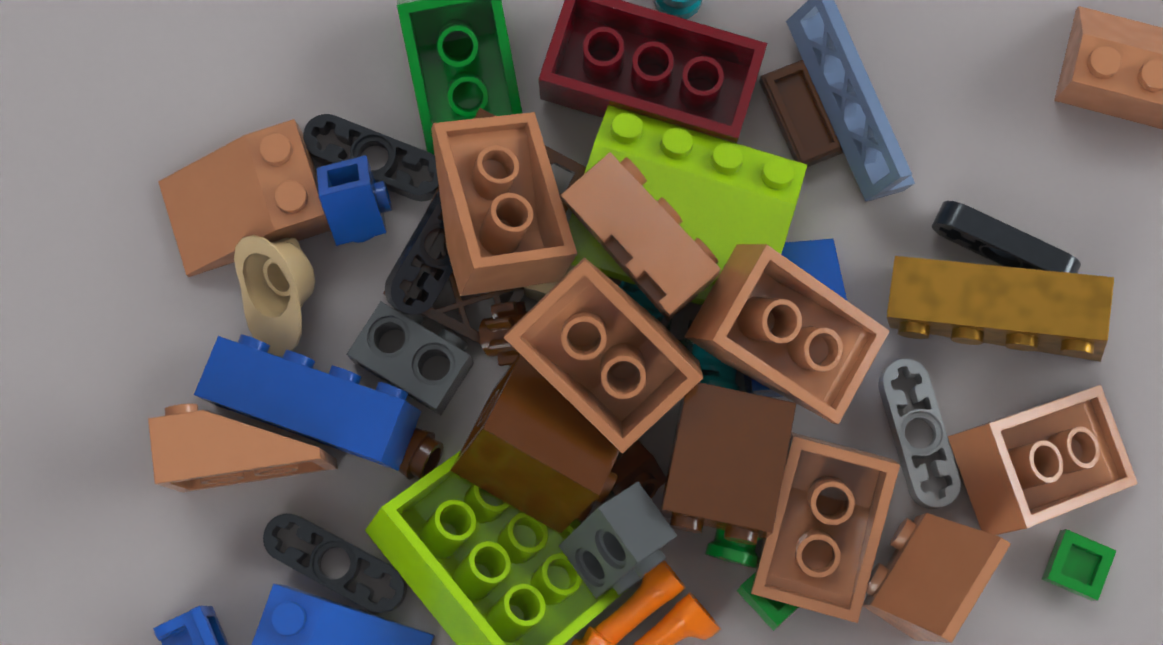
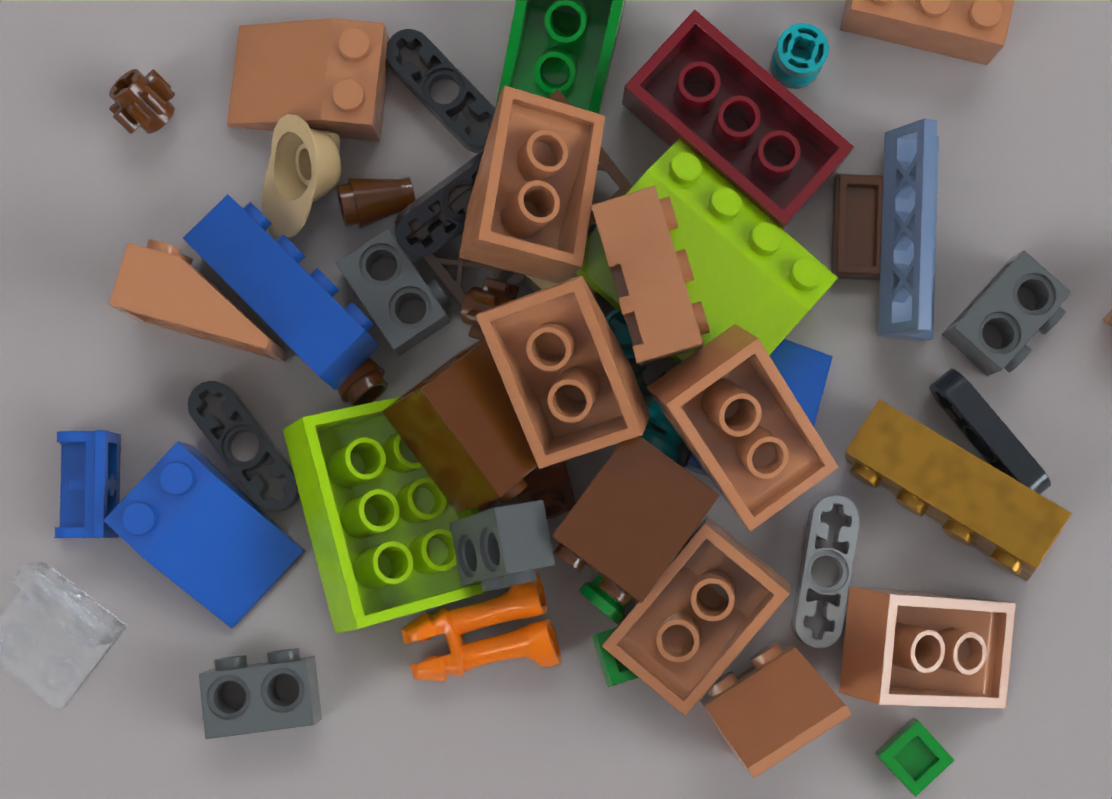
camera: 25 degrees right, 5 degrees up
(99, 288) = (141, 101): none -> reddish brown gear
(353, 200) = (405, 123): blue brick -> none
(353, 283) = (371, 200): none -> reddish brown cone
(960, 128) = (1000, 307): none -> dark grey brick

